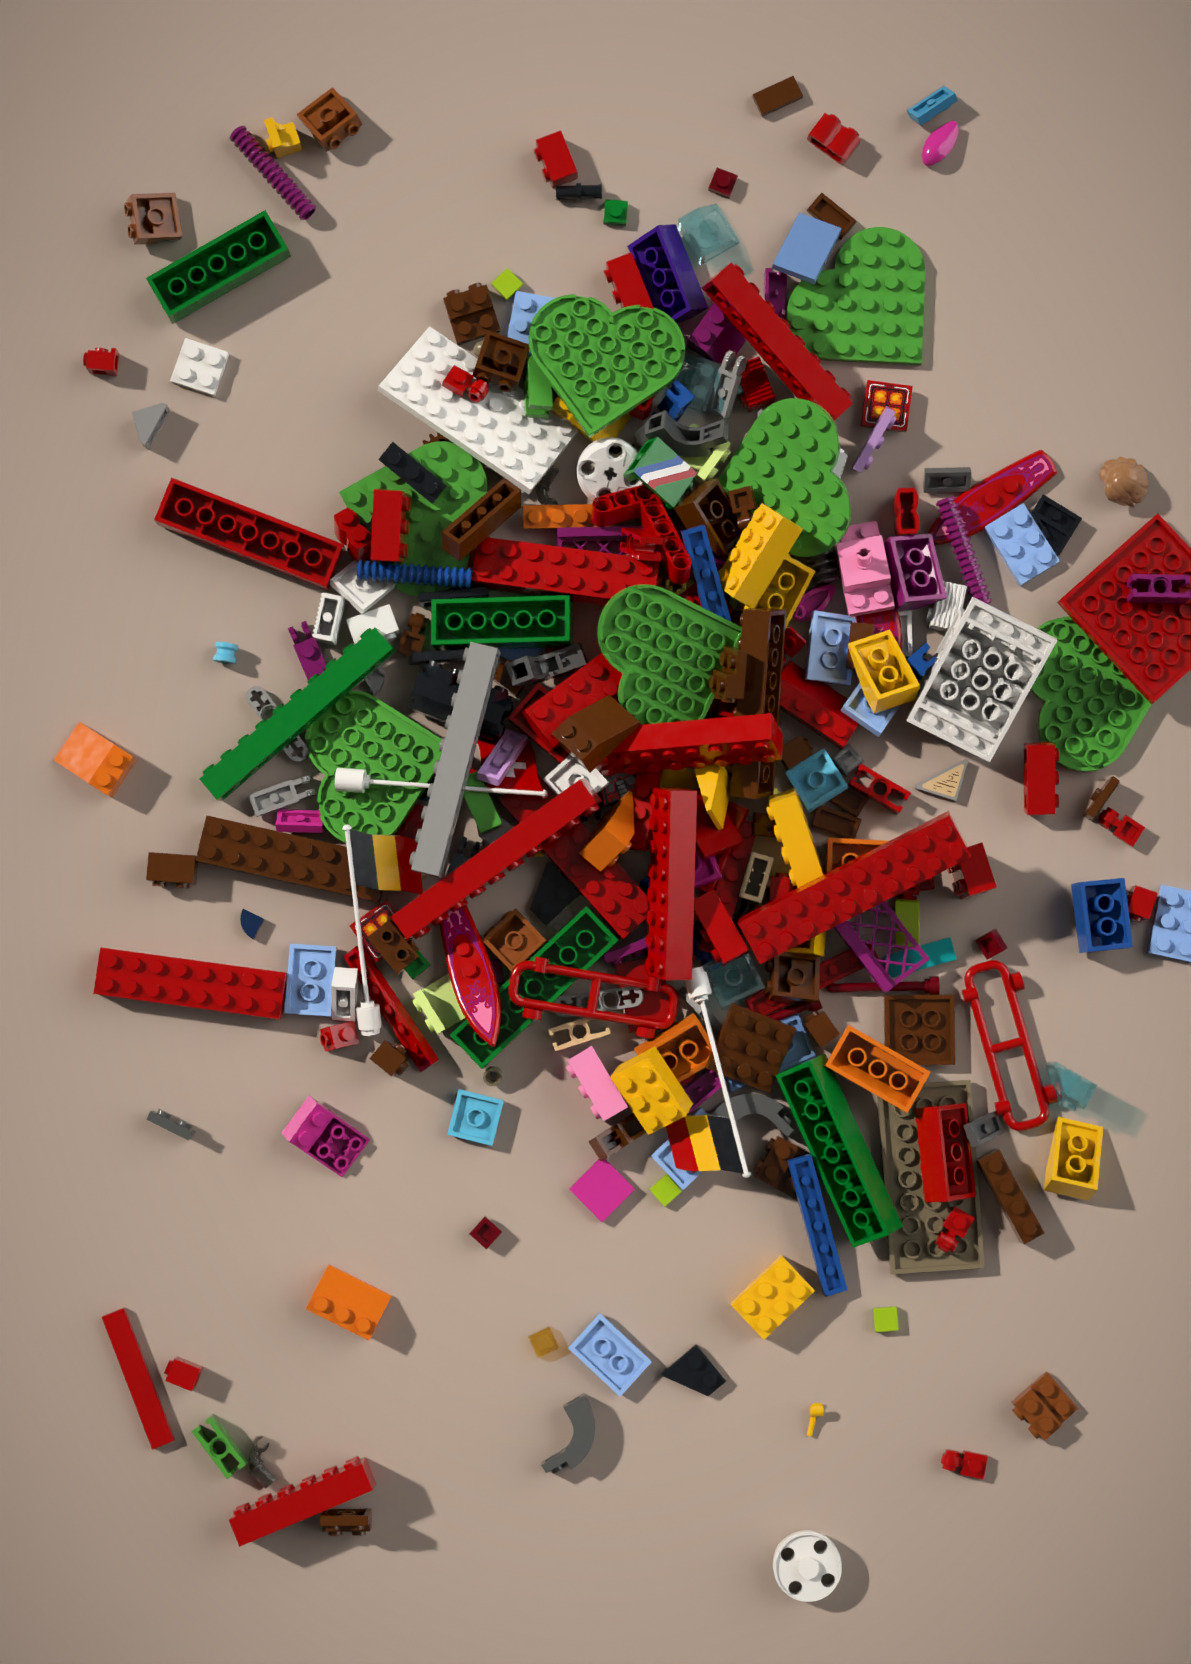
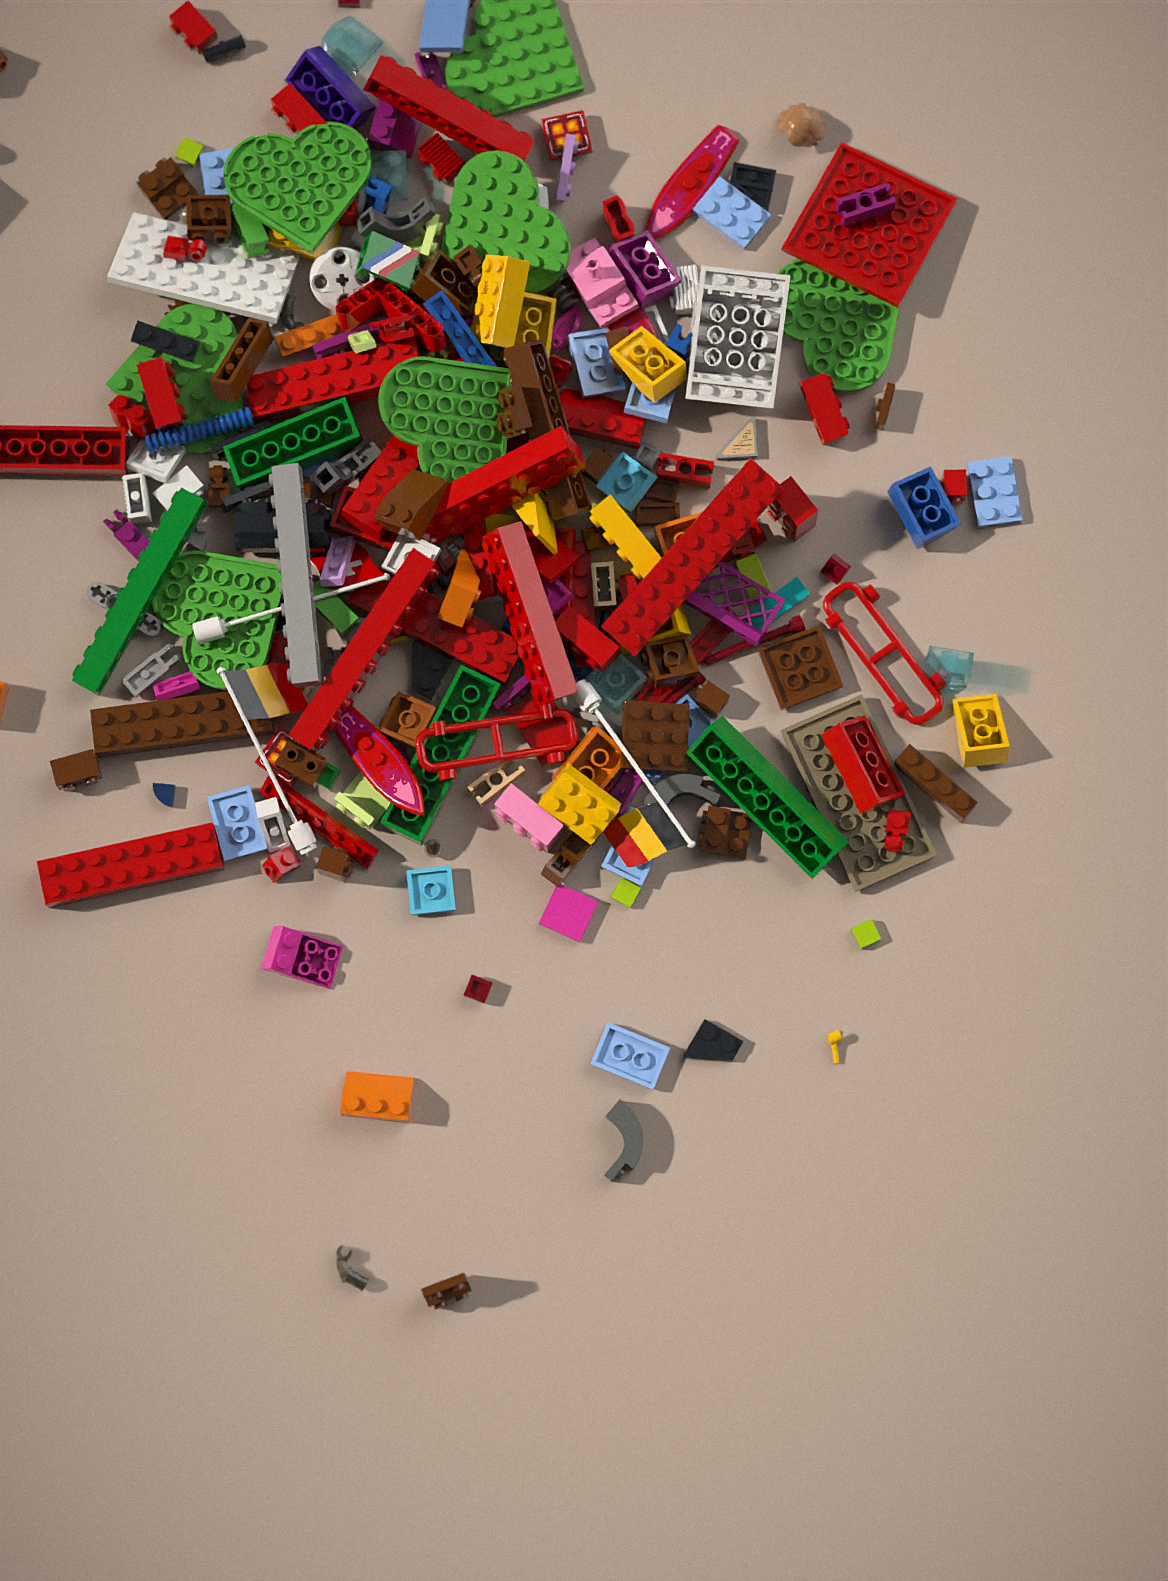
camera: 15 degrees left, 5 degrees down
(138, 1378) = (211, 1236): red tile -> none
(163, 1120) = (148, 995): dark grey plate -> none
(183, 1373) = (250, 1215): red brick -> none
(218, 1457) = (298, 1269): bright green piece -> none
(225, 653) = (54, 563): medium azure wheel -> none
(303, 1501) = (400, 1287): red brick -> none
(543, 1342) = (566, 1067): clear yellow tile -> none
(601, 1005) = (524, 728): light grey beam -> none
(606, 544) = (361, 341): none -> yellowish green tile
(615, 212) = (263, 55): green plate -> none
(726, 385) = (417, 167): light grey hinge -> none
(772, 1297) = (756, 950): yellow brick -> none
(807, 1565) = (877, 1177): white piece -> none
(817, 1225) = (773, 871): blue plate -> none
(877, 1068) = (774, 710): orange slope -> none
(947, 479) = (644, 180): dark grey plate -> none
(963, 549) = (677, 230): magenta piece -> none
(971, 1463) = (991, 1034): red plate -> none
(983, 1129) = (889, 732): dark grey plate -> none
(1043, 1406) = (1036, 958): dark orange plate -> none
(1125, 830) = (918, 425): red plate -> none

